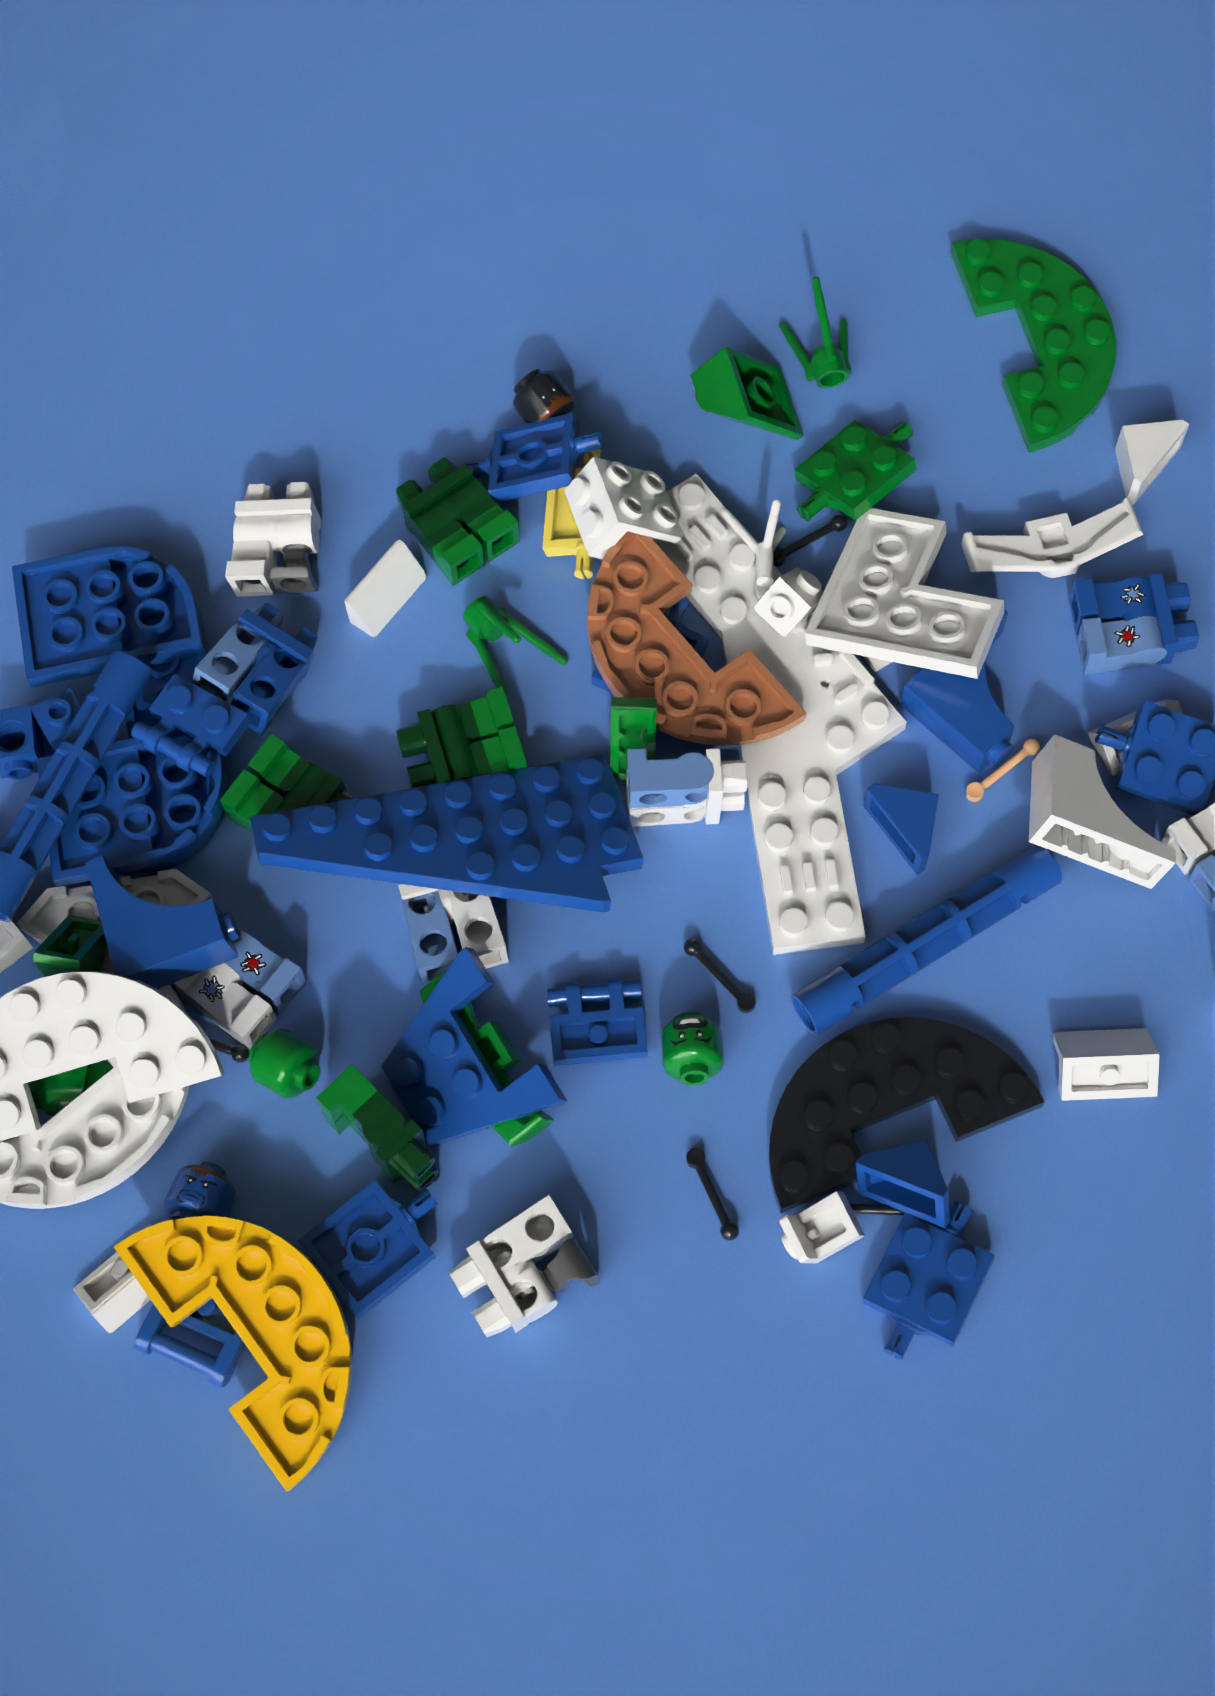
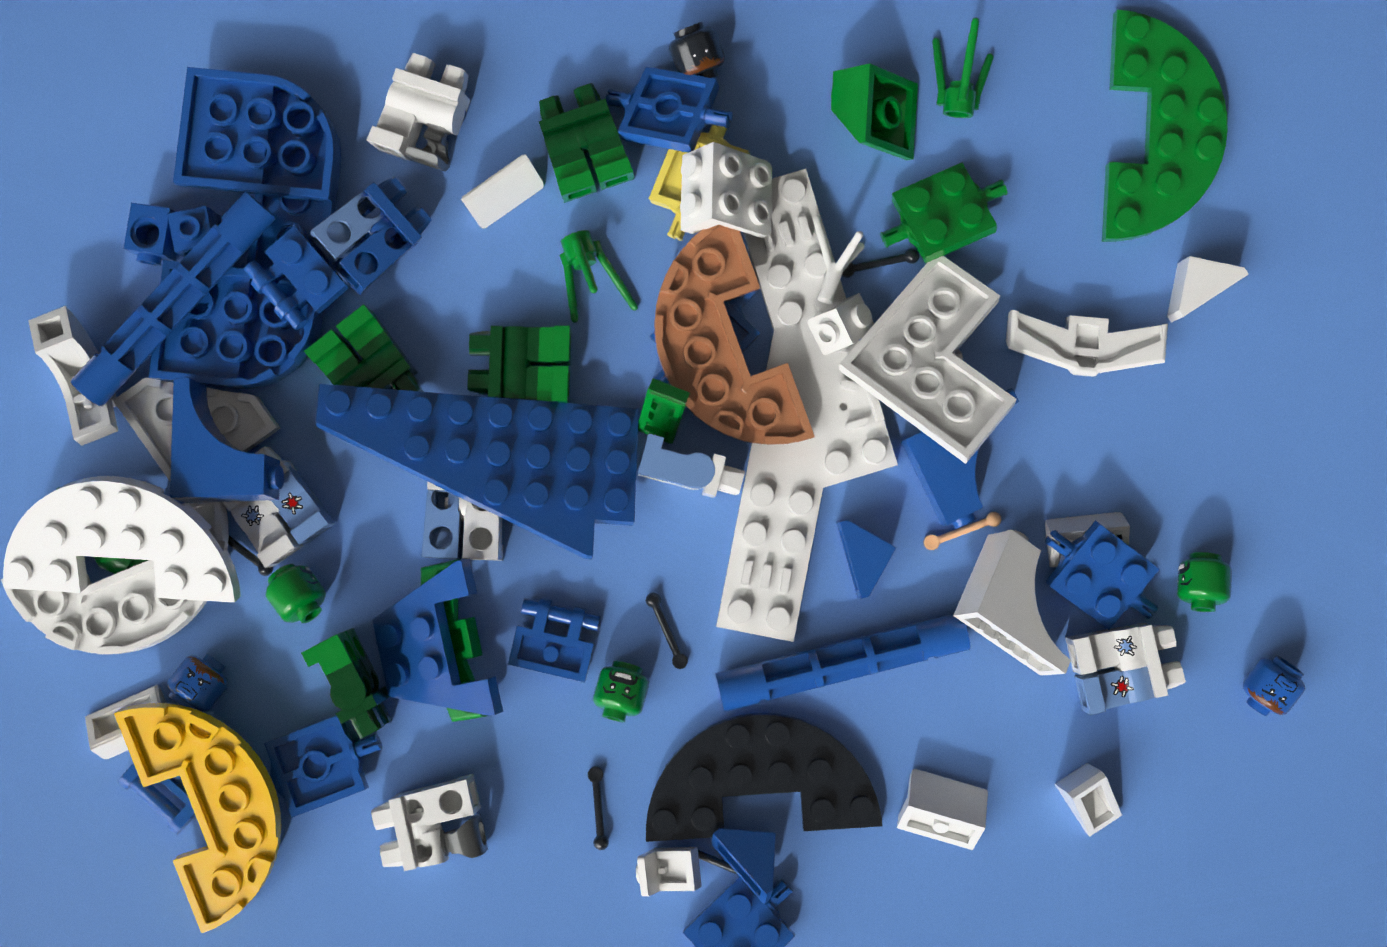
camera: 15 degrees right, 20 degrees up
(72, 947) = (146, 448): green slope -> none
(1130, 622) = (1133, 441): hips -> none

